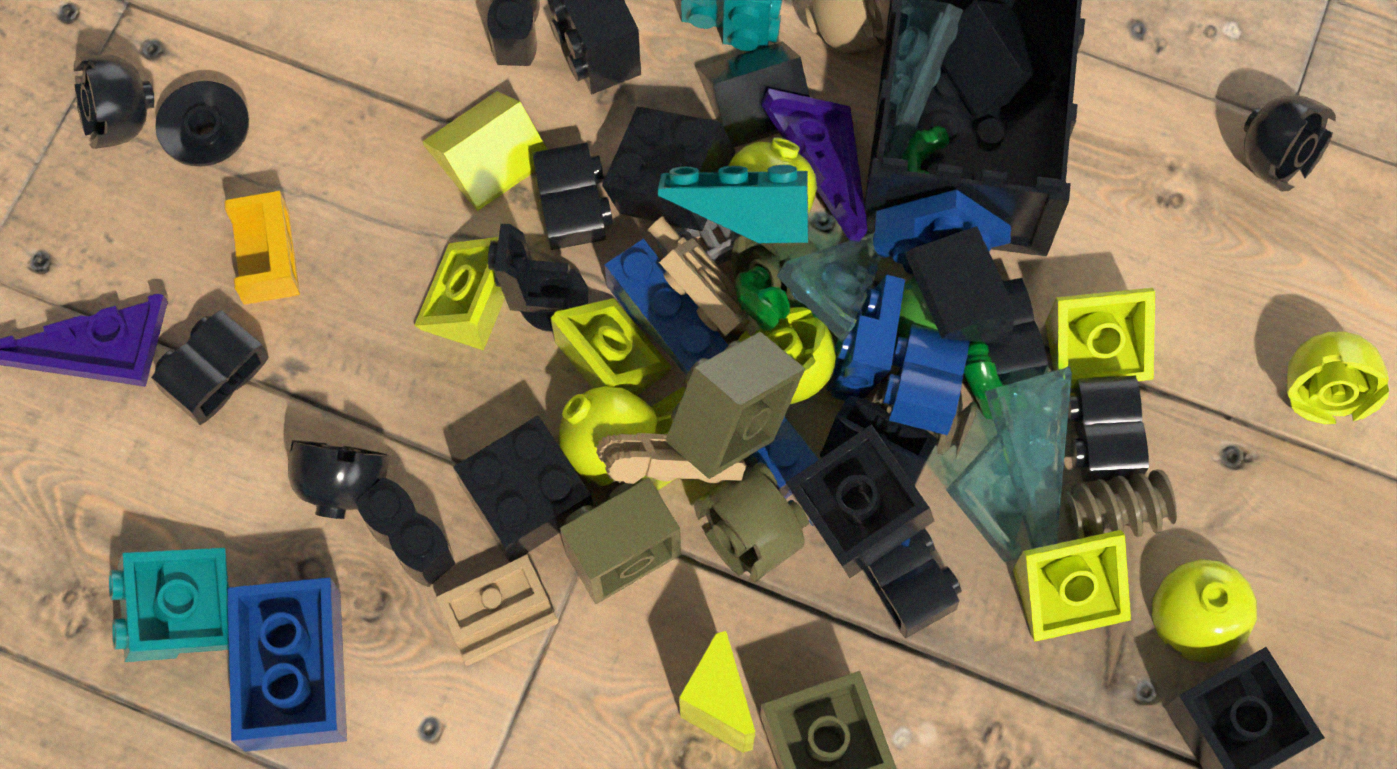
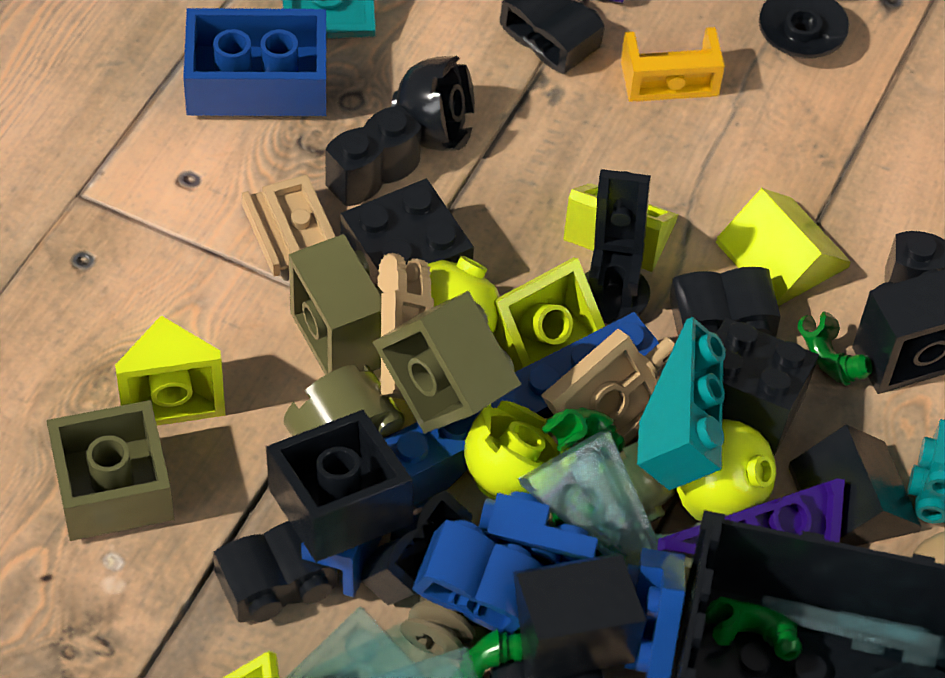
camera: 90 degrees right, 15 degrees down
(622, 102) = (838, 366): none -> green piece

